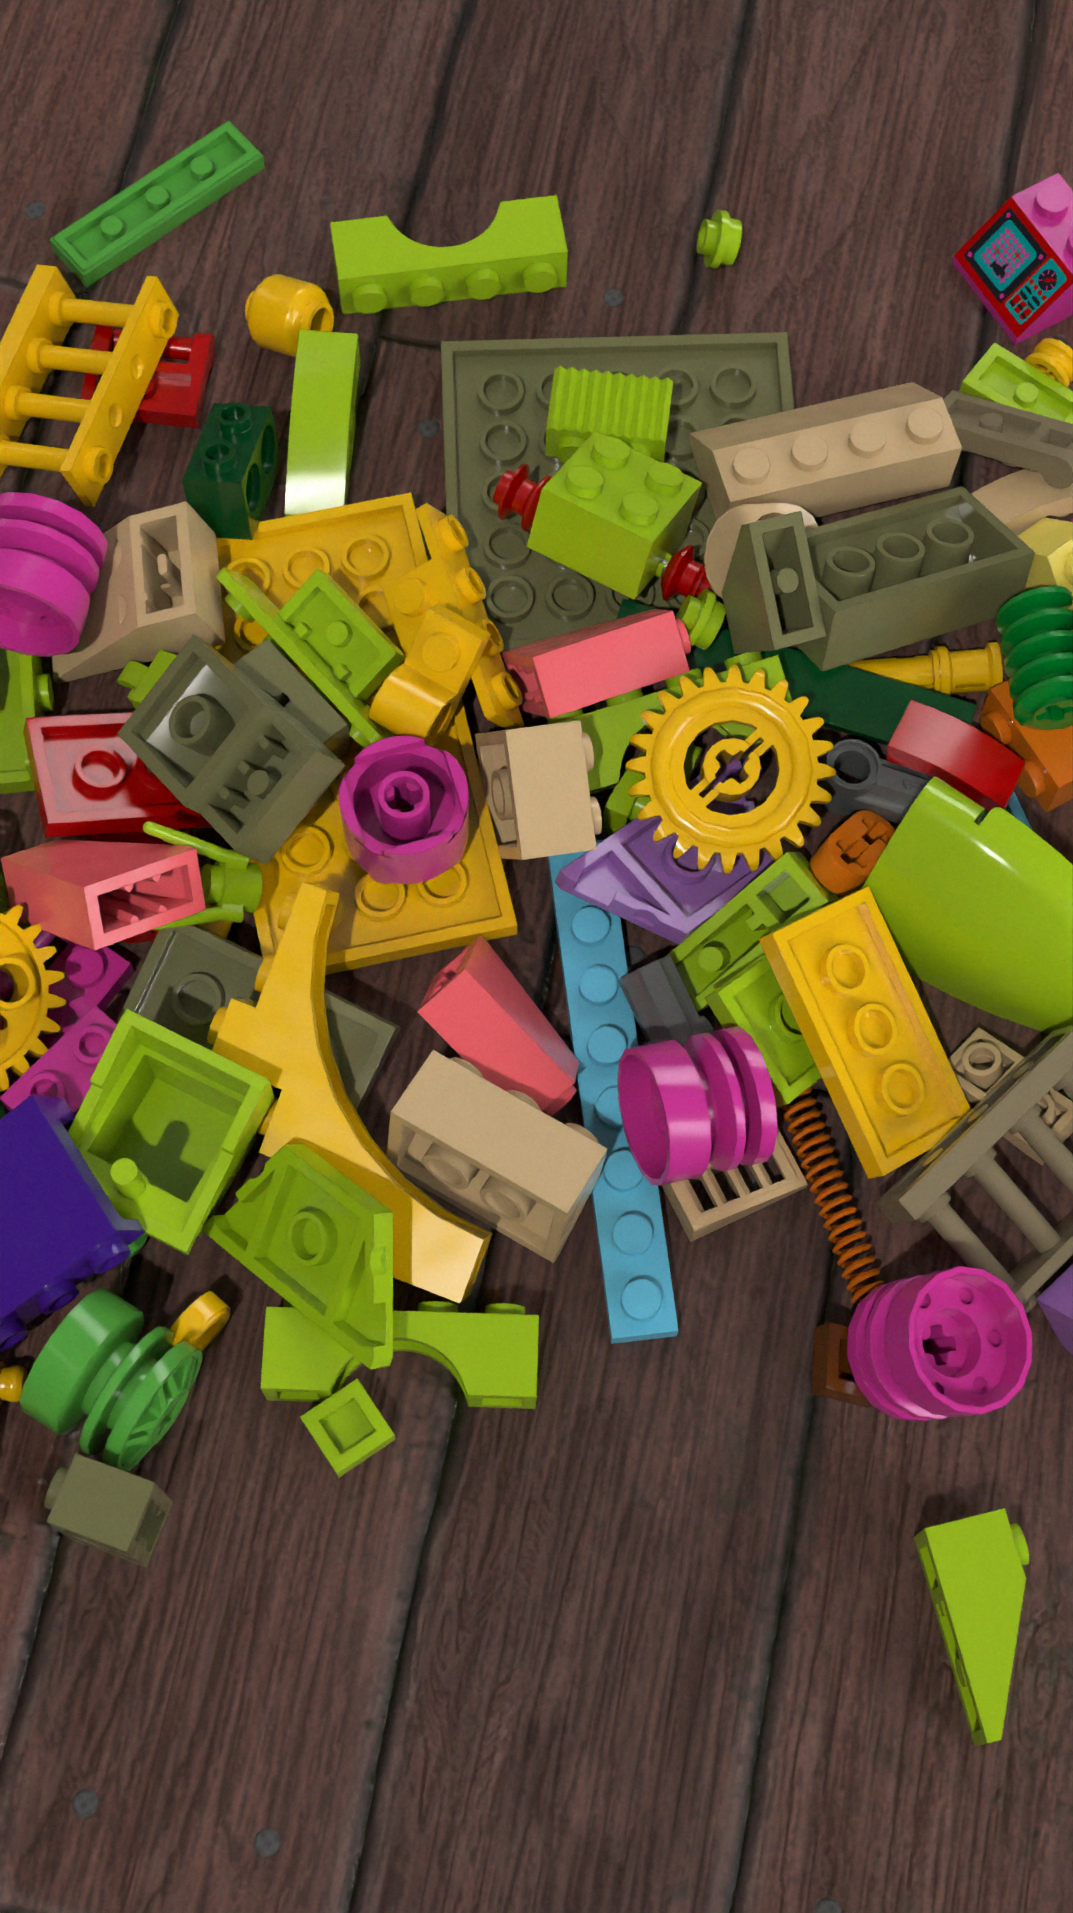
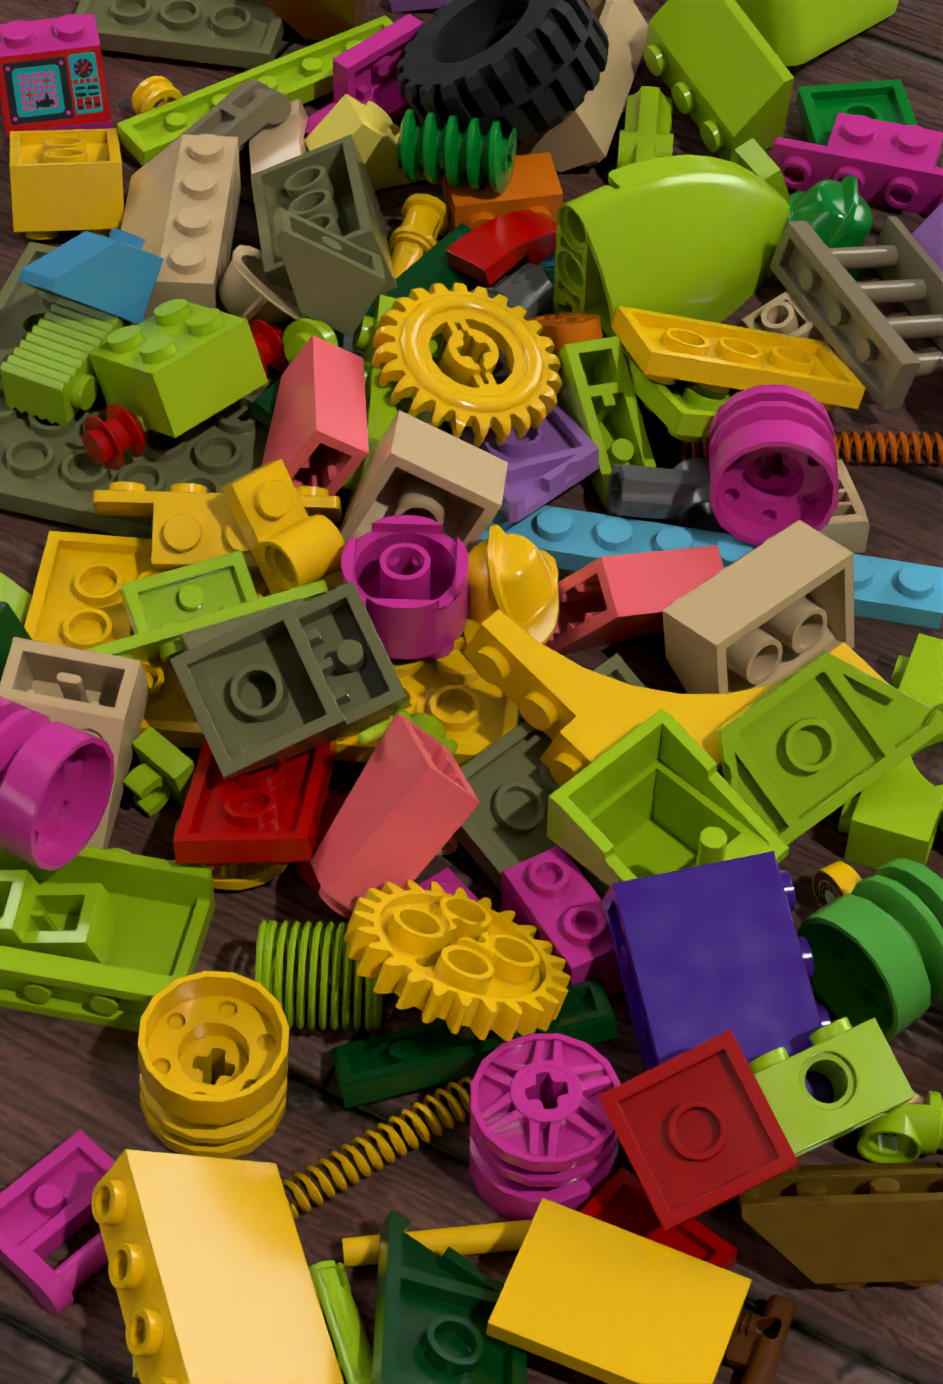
camera: 70 degrees left, 20 degrees down
(452, 909) = (515, 578): none -> yellow piece
(684, 393) = (99, 273): none -> dark azure slope
(897, 324) = (66, 182): none -> yellow slope

